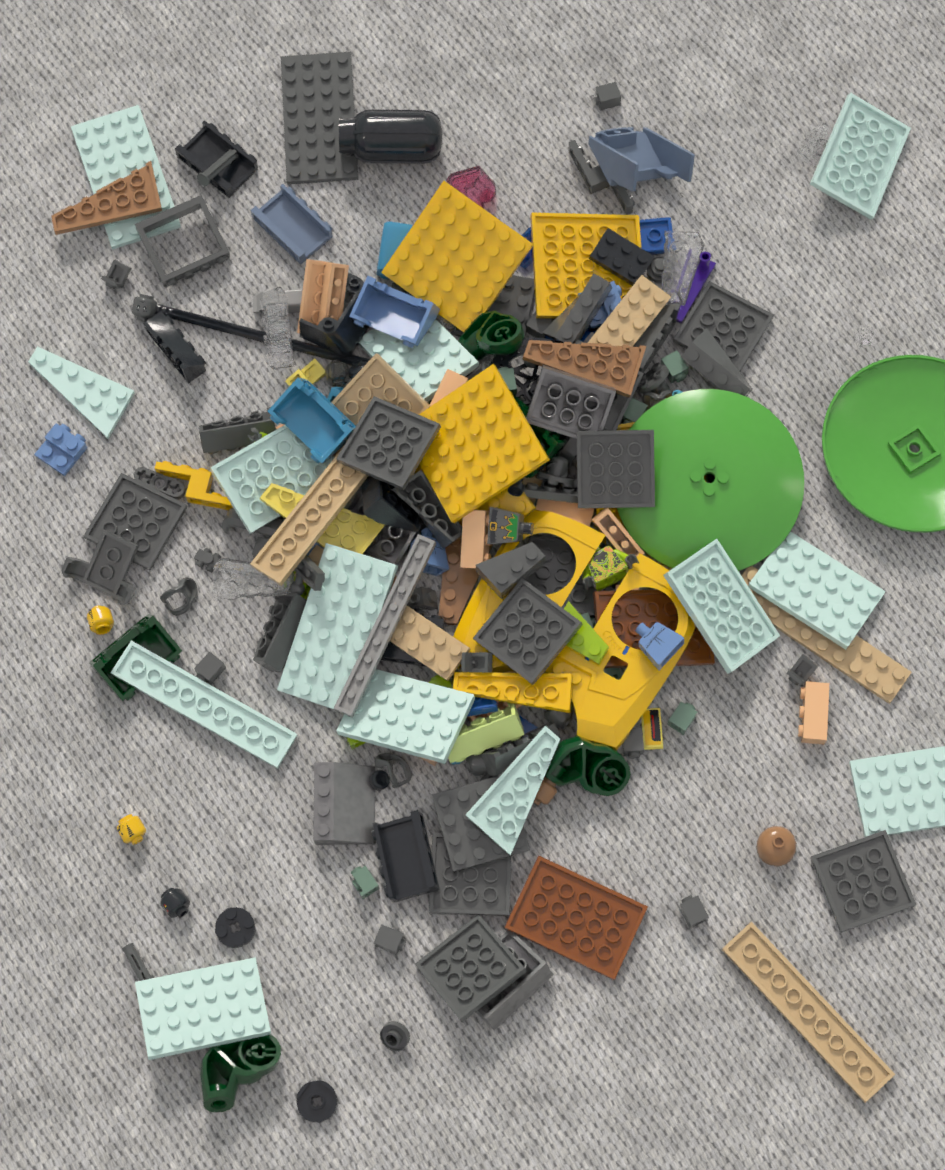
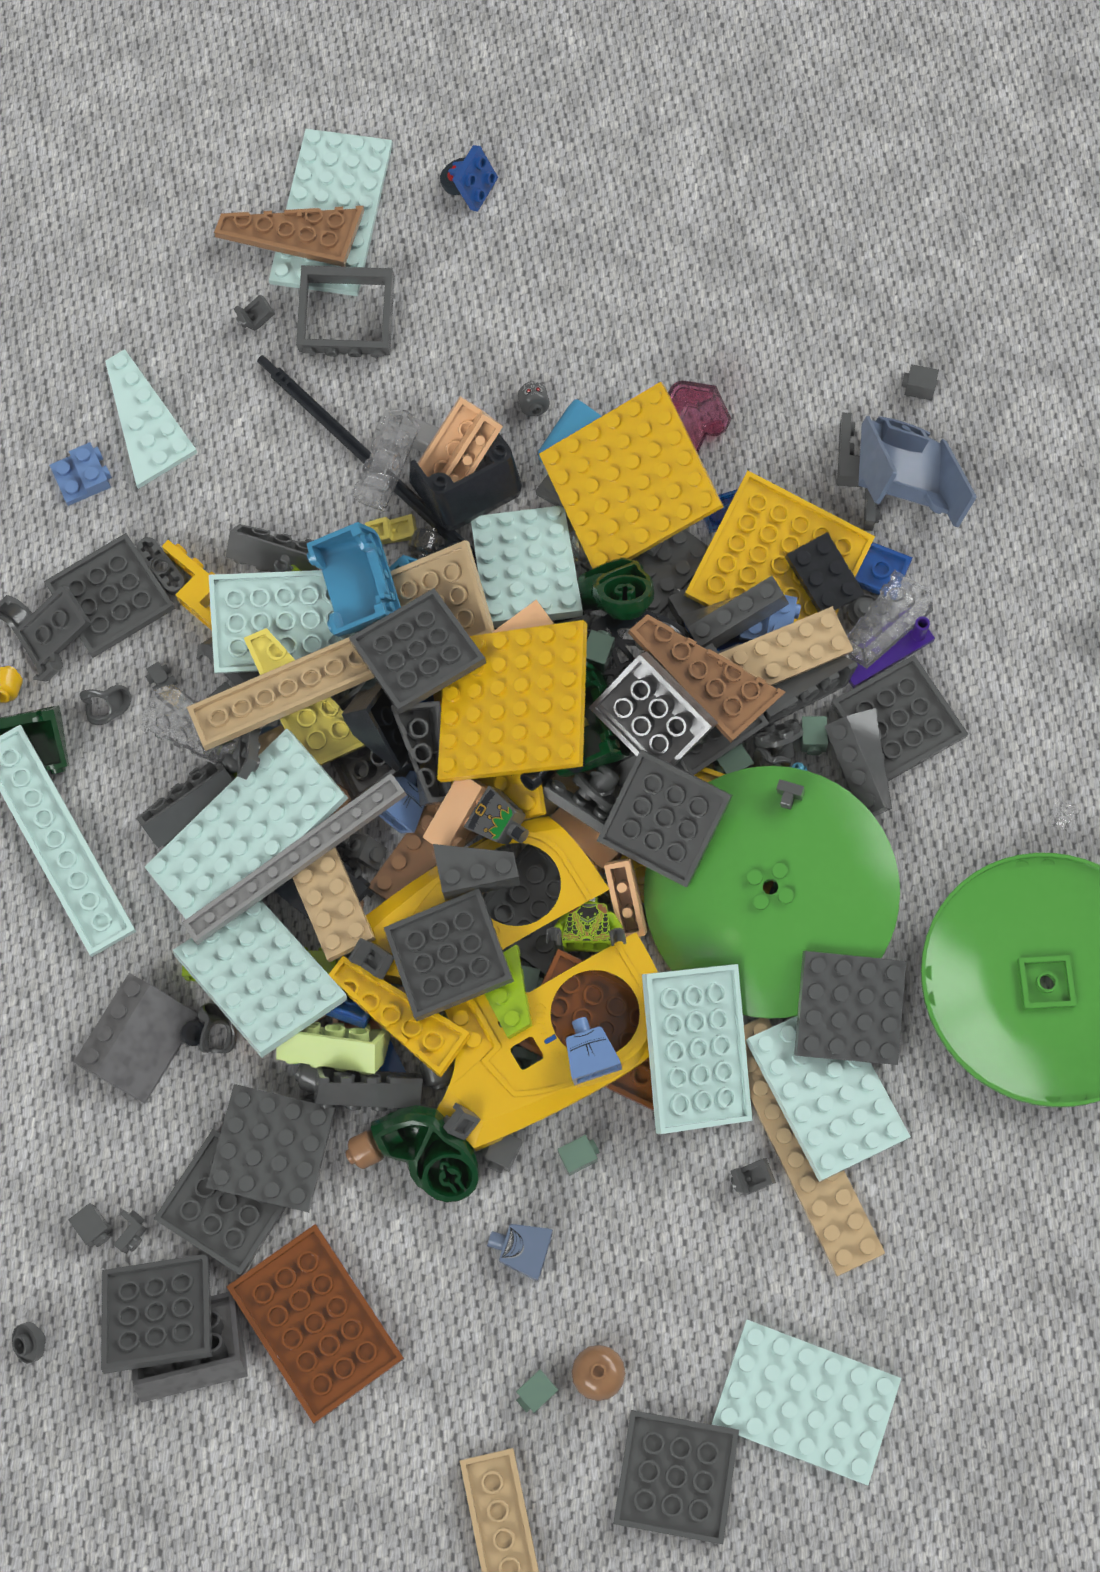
camera: 30 degrees right, 0 degrees up
(144, 307) = (261, 363): dark grey head -> none
(175, 347) = (267, 424): black wedge -> none
(205, 177) = (430, 247): dark grey axle -> none
(209, 668) = (86, 802): dark grey brick -> none
(210, 146) = (440, 241): black panel -> none
(212, 104) = (470, 177): none -> blue plate
(293, 224) = (478, 353): sand blue panel -> none
(315, 96) = (579, 249): dark grey plate -> none
(351, 236) = (533, 397): none -> dark grey head
(364, 881) = (104, 1141): sand green brick -> none
(392, 136) = (642, 306): black piece -> none
(393, 312) = (522, 505): medium blue windscreen -> none
(405, 857) = (165, 1139): black panel -> none
(421, 932) = (131, 1236): none -> dark grey bracket
(508, 801) = (312, 1141): light aqua wing -> none
(600, 734) = (461, 1122): none -> dark grey tile
(652, 729) = (535, 1148): slope -> none
(683, 796) = (523, 1248): none -> sand blue torso
(687, 409) = (789, 792): none -> dark grey tile
(693, 911) = (453, 1394): dark grey brick -> none
(745, 879) = (536, 1392): none -> sand green brick
(803, 528) = (850, 1008): none -> dark grey plate
(814, 712) = (737, 1236): light nougat brick -> none

